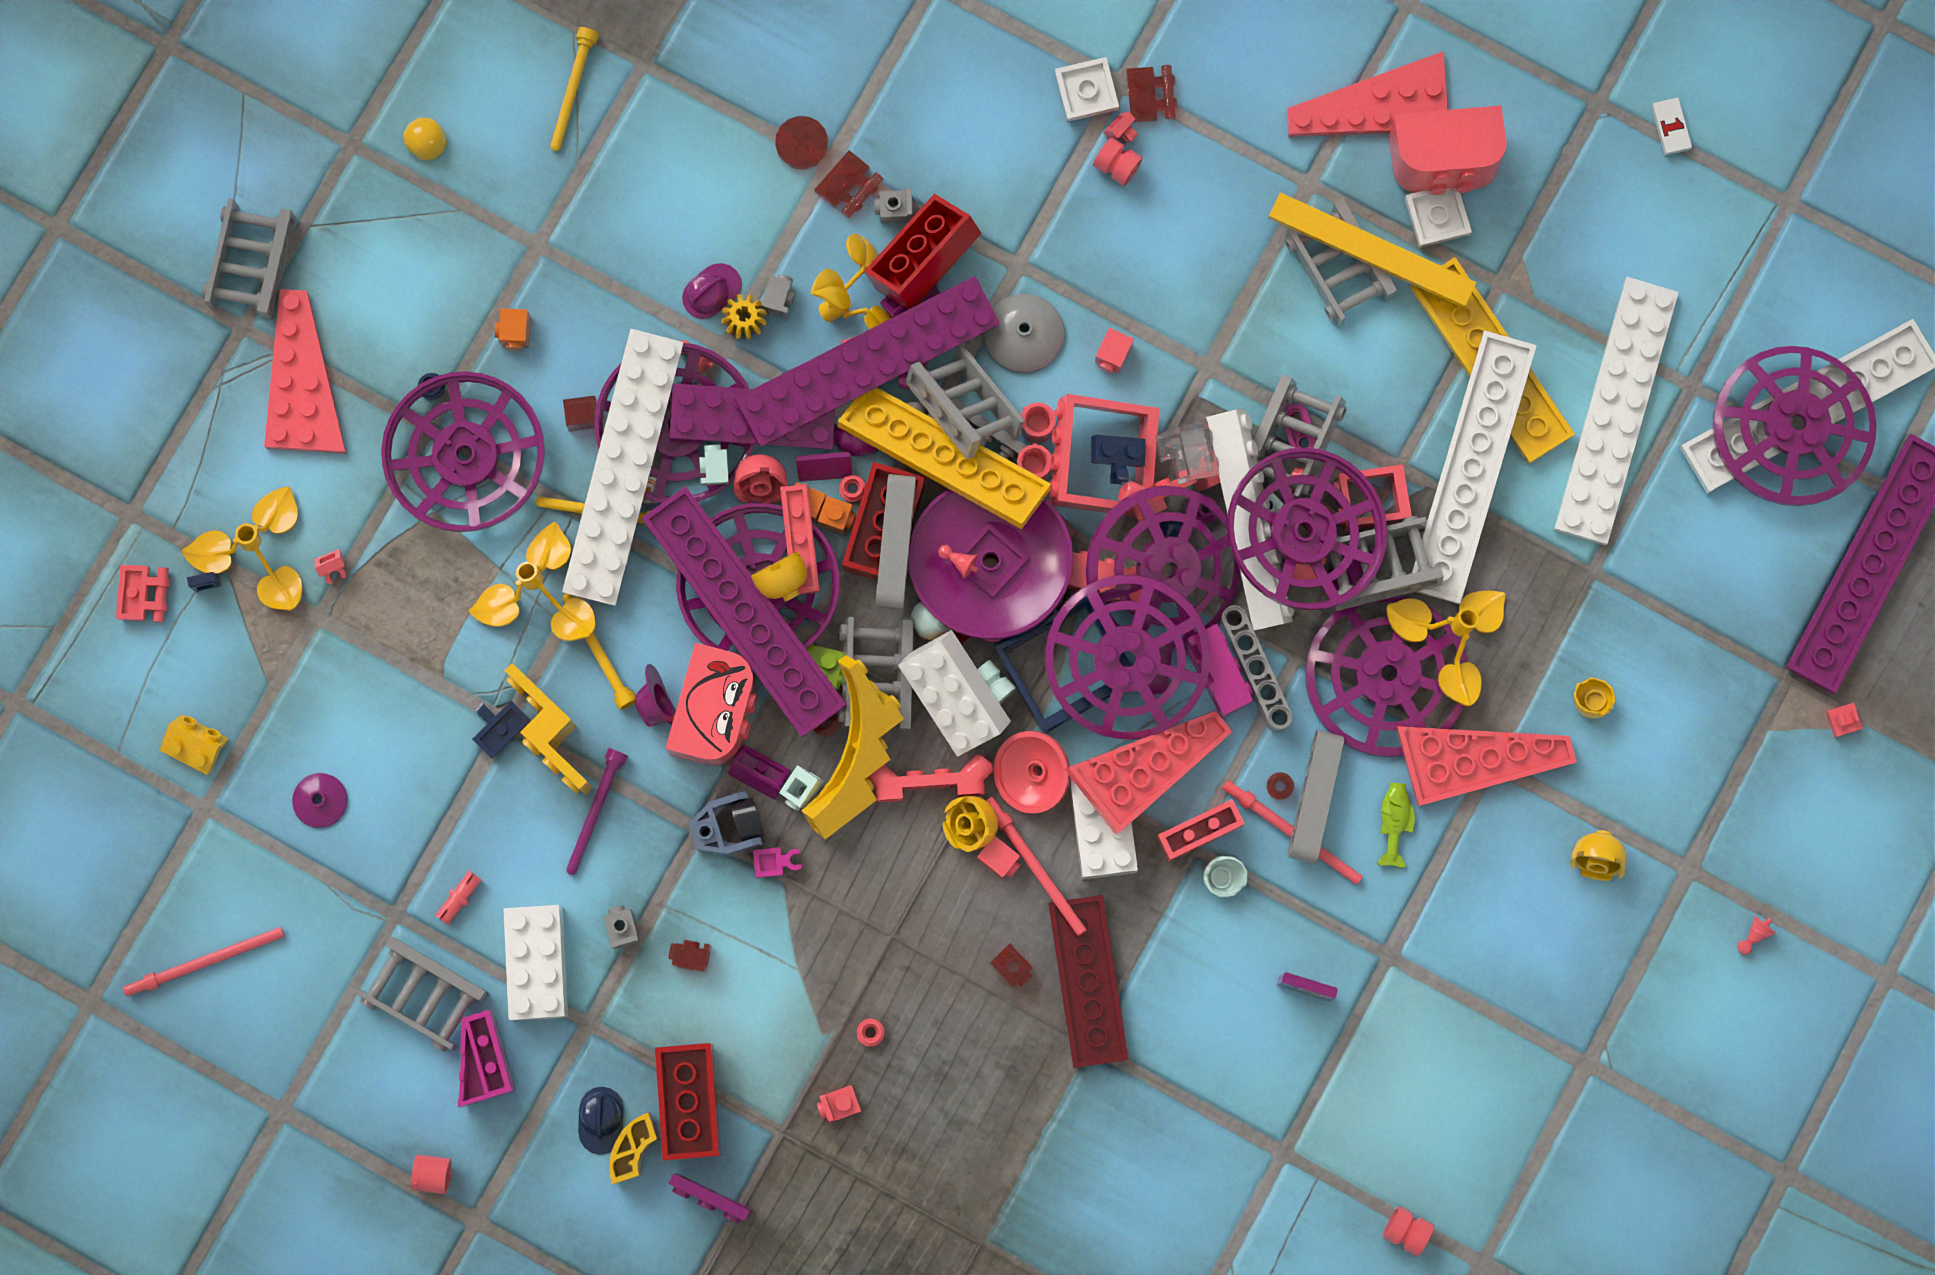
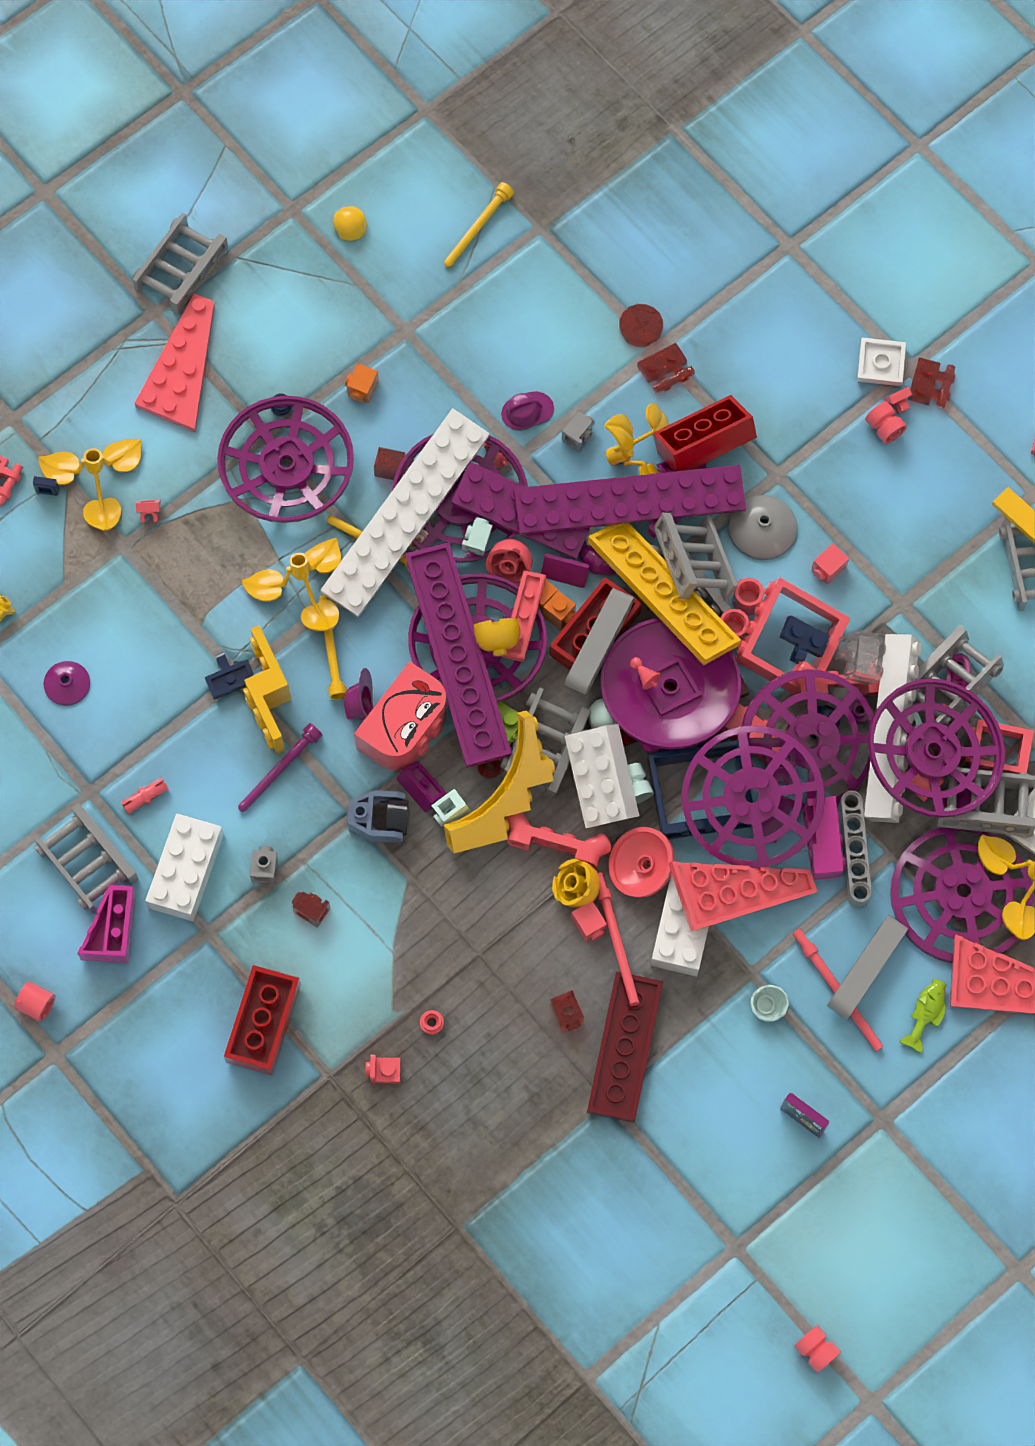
camera: 20 degrees right, 10 degrees down
(600, 1120) = (187, 1012): dark blue piece -> none
(630, 1147) = (202, 1039): yellow brick -> none
(709, 1199) = (249, 1102): magenta plate -> none
(733, 320) = (545, 444): yellow gear -> none
(771, 862) = (404, 858): dark pink plate -> none
(852, 480) = (579, 589): coral plate -> none
(901, 212) = (695, 395): light grey brick -> none
(1200, 830) = (762, 958): coral brick -> none
(1282, 777) = (841, 942): clear red plate -> none

